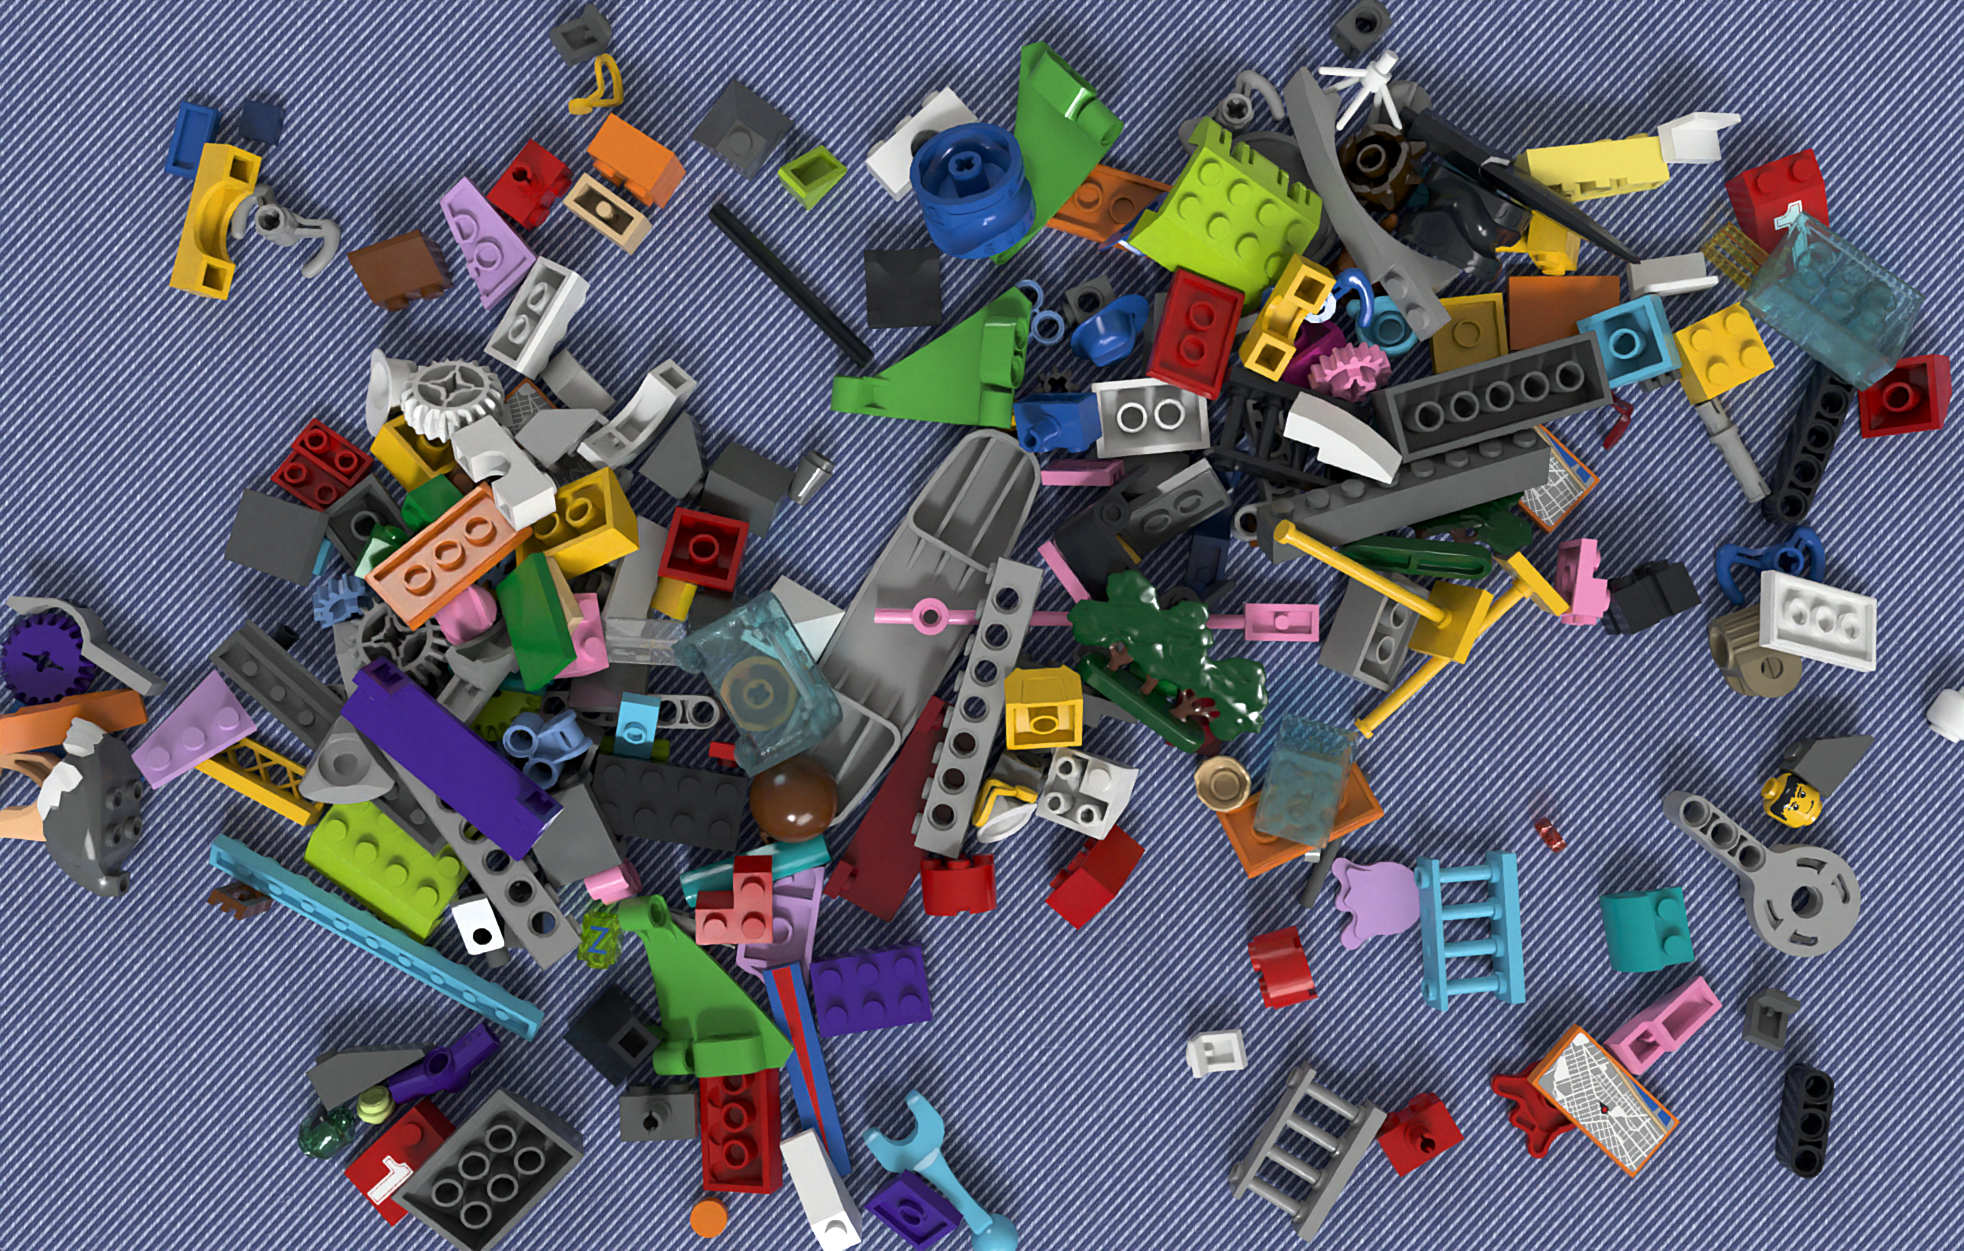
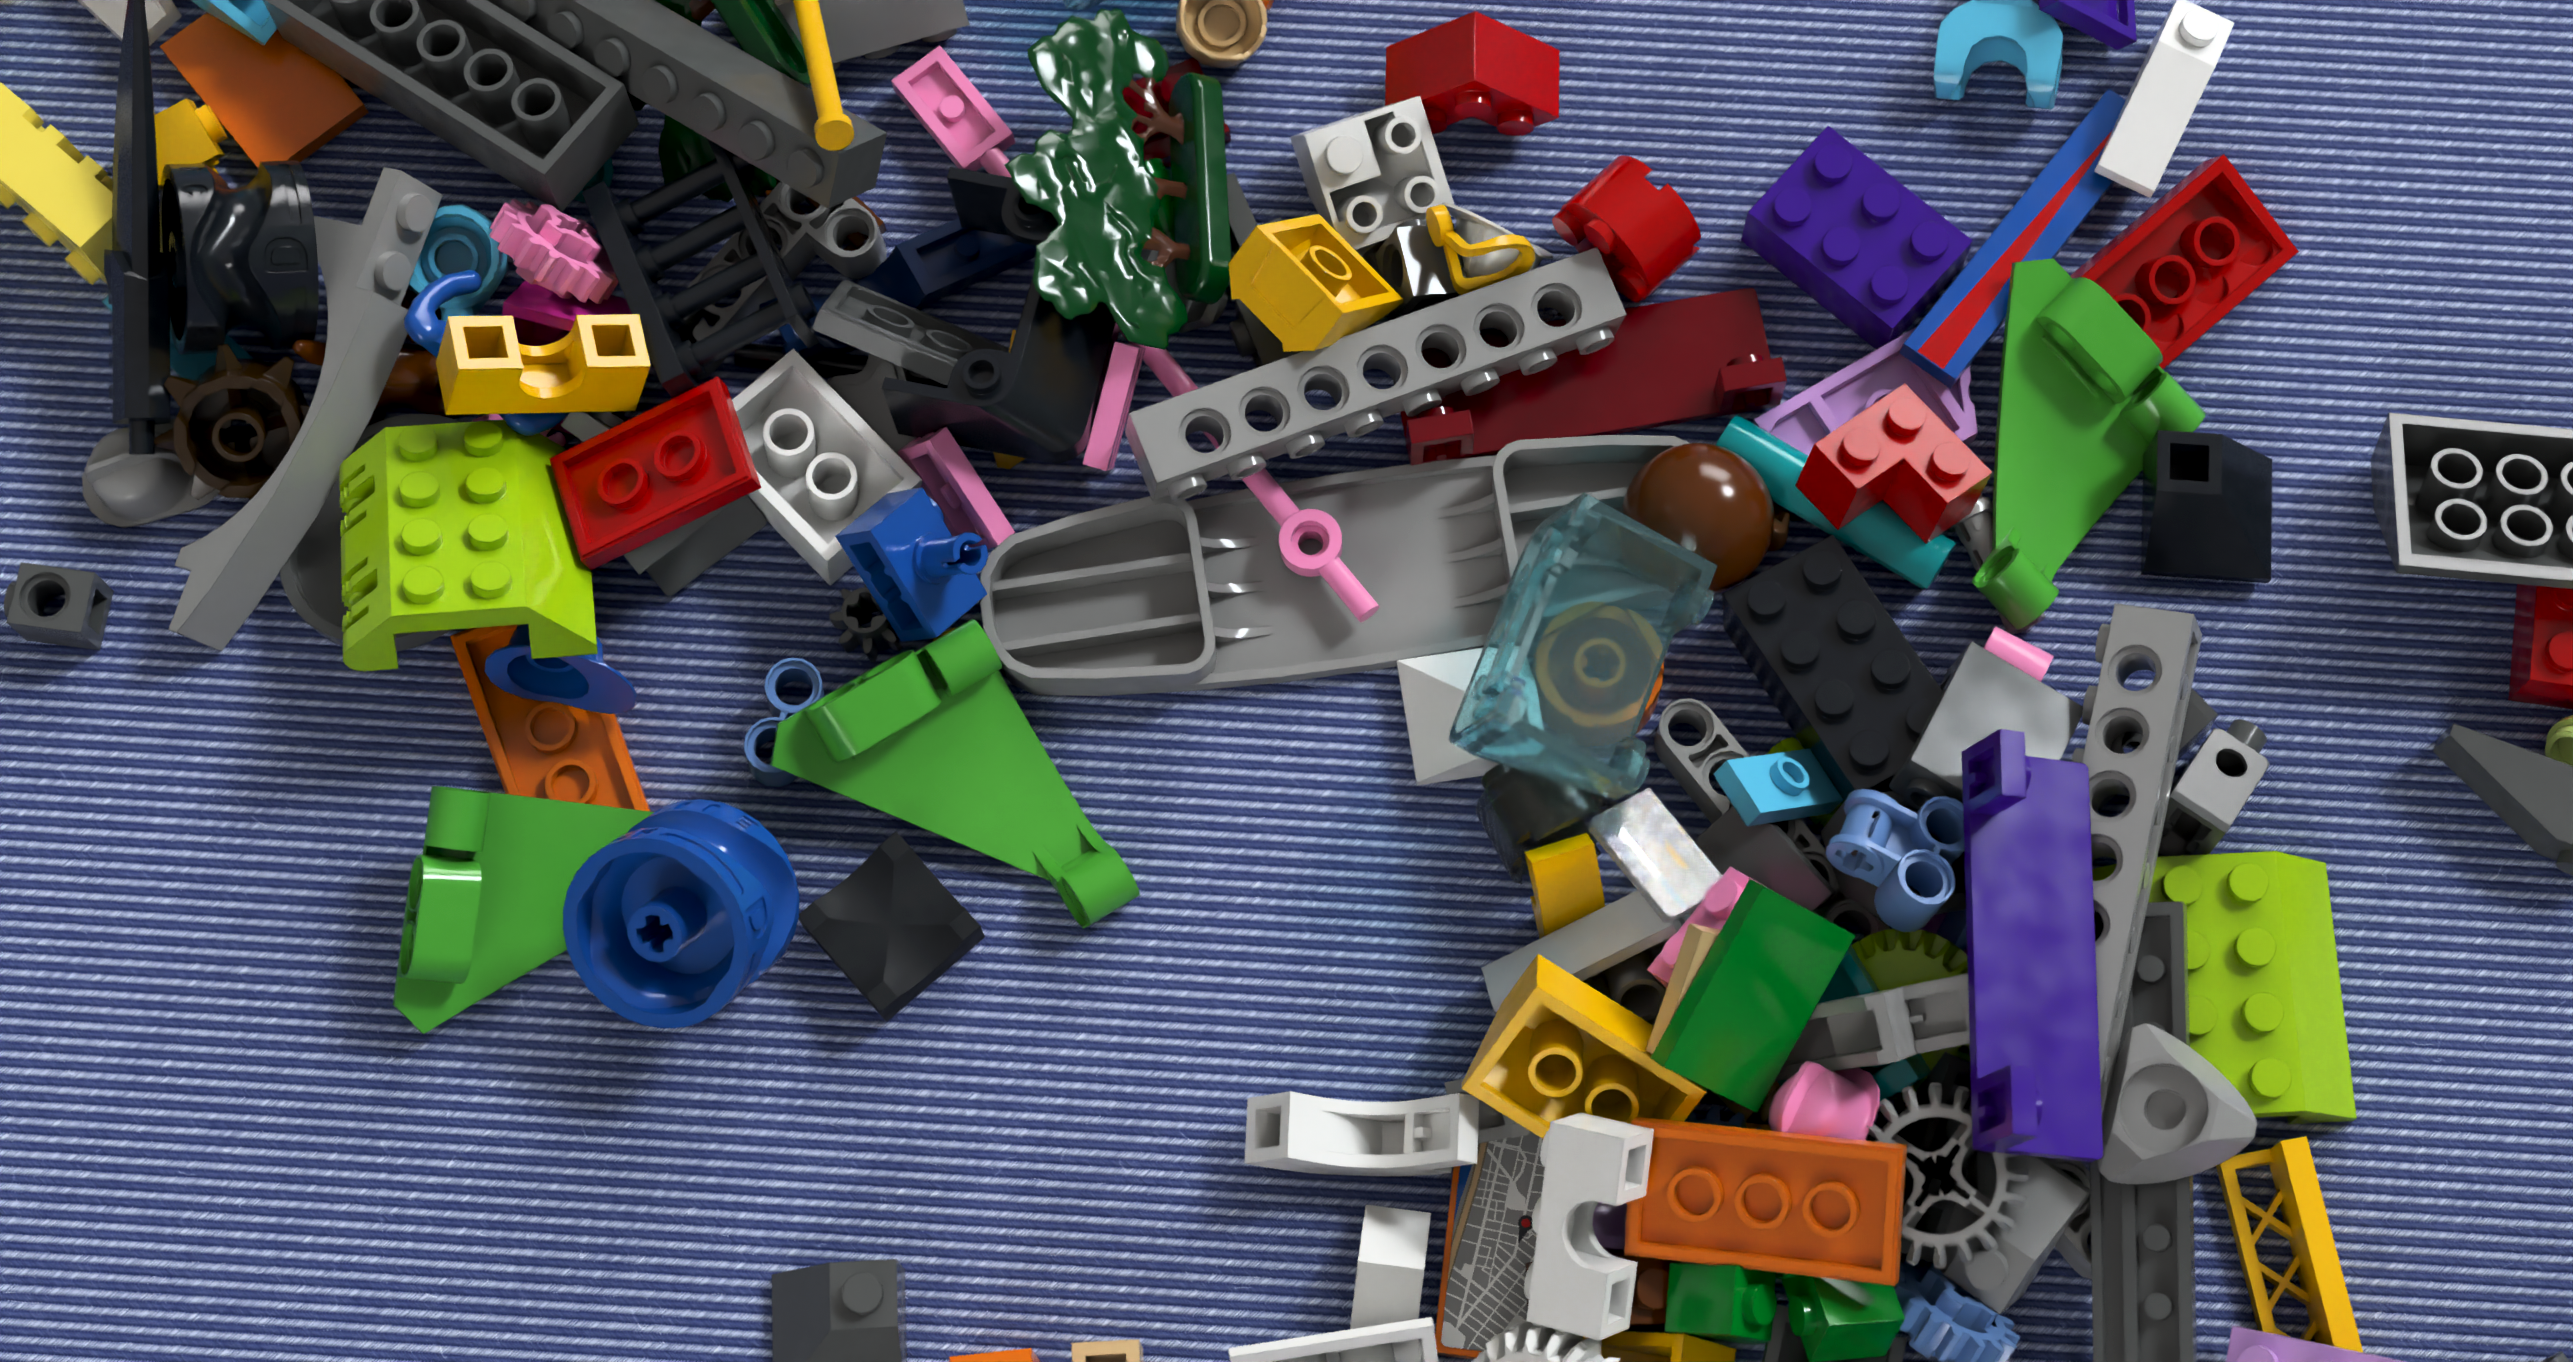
camera: 130 degrees left, 15 degrees down
(248, 904) = (2478, 1111): reddish brown tile -> none
(375, 937) = (2367, 934): medium azure plate -> none
(445, 1066) = (2407, 681): dark purple piece -> none
(557, 434) = (1473, 1205): light grey slope -> none
(601, 939) = (2075, 626): clear neon green brick -> none
(660, 1112) = (2250, 377): dark grey brick -> none
(679, 461) = (1375, 1032): dark grey slope -> none
(704, 549) = (1470, 891): red slope -> none
(709, 1217) = (2325, 218): orange tile -> none
(724, 753) = (1711, 659): red plate -> none
(746, 488) = (1339, 922): dark grey slope -> none
(790, 285) = (1007, 1092): black axle -> none
(810, 476) = (1252, 849): dark grey cone -> none
(811, 176) = (830, 1178): lime slope -> none
(892, 160) = (722, 1076): white arch -> none
(1096, 288) = (699, 646): dark grey brick -> none
(1112, 331) = (740, 597): blue piece -> none
(1235, 110) = (310, 681): light grey piece -> none
(1341, 438) = (653, 178): white slope -> none
(1373, 79) = (123, 516): white plant -> none
(1472, 334) = (376, 136): yellow plate -> none

